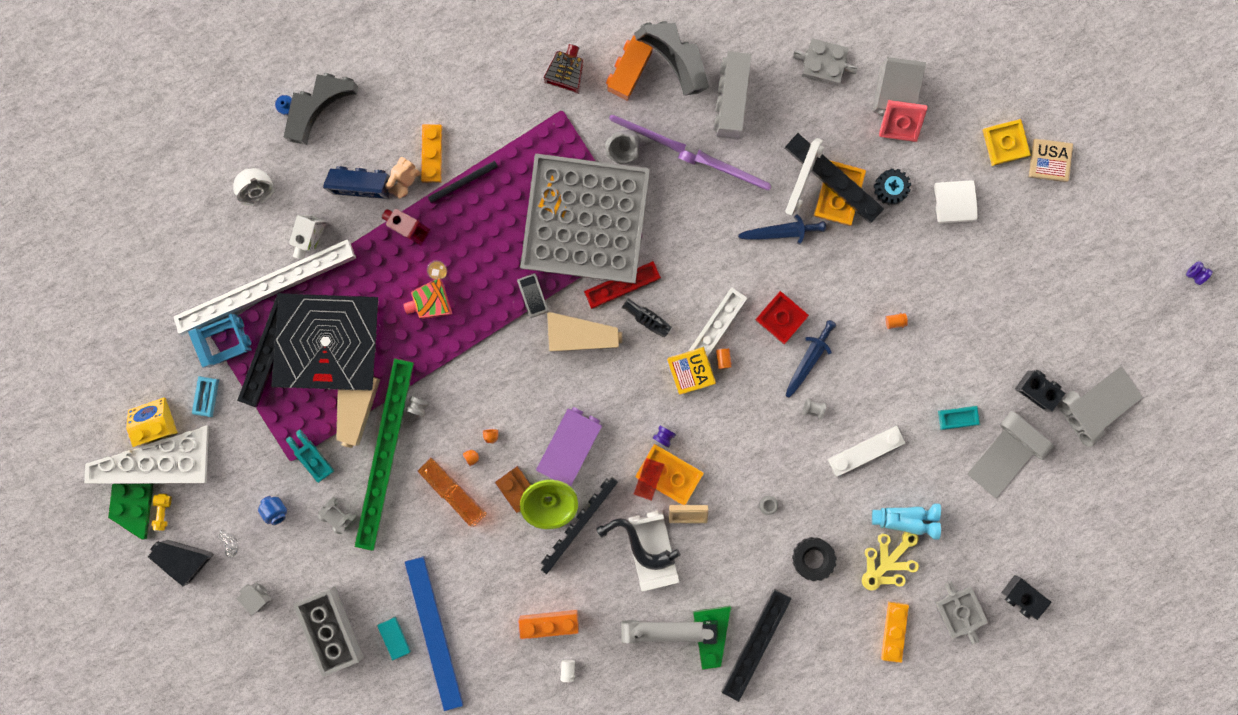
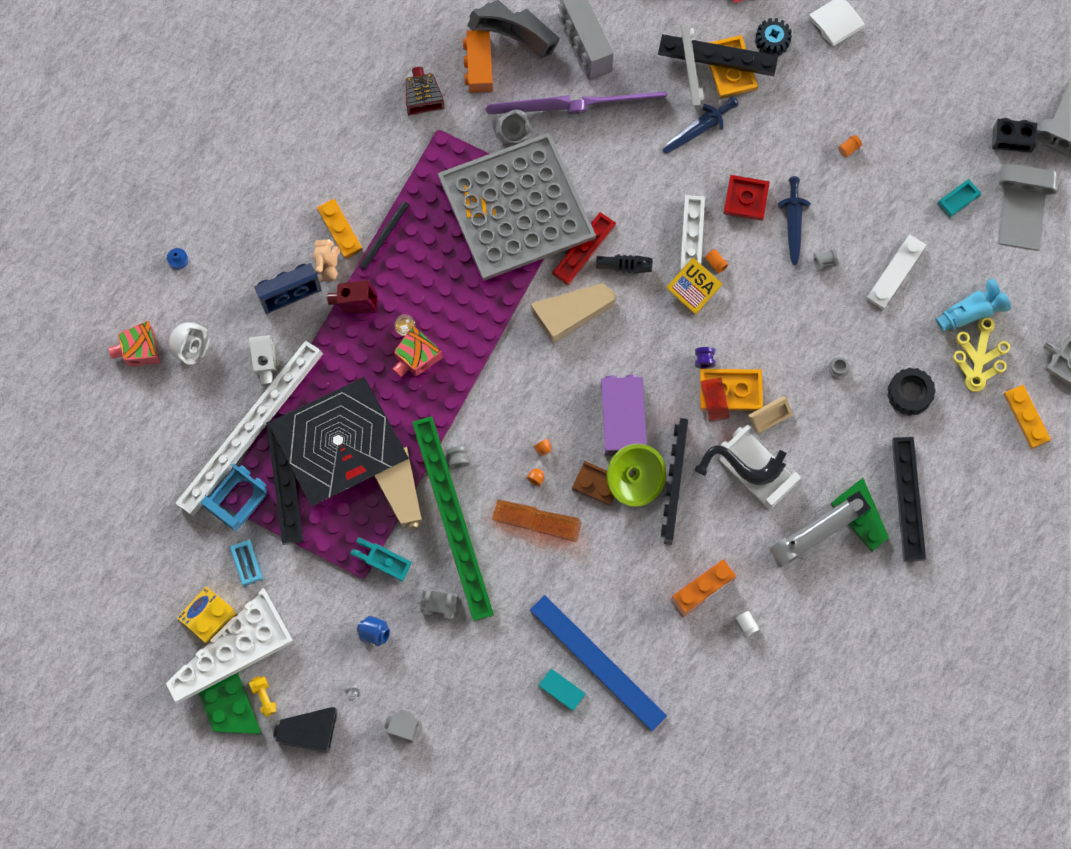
camera: 30 degrees left, 15 degrees down
(212, 164) = (137, 346): none -> torso
(307, 107) = (200, 247): dark grey arch -> none
(328, 631) = (494, 713): light grey brick -> none
(532, 295) = (509, 298): slope -> none

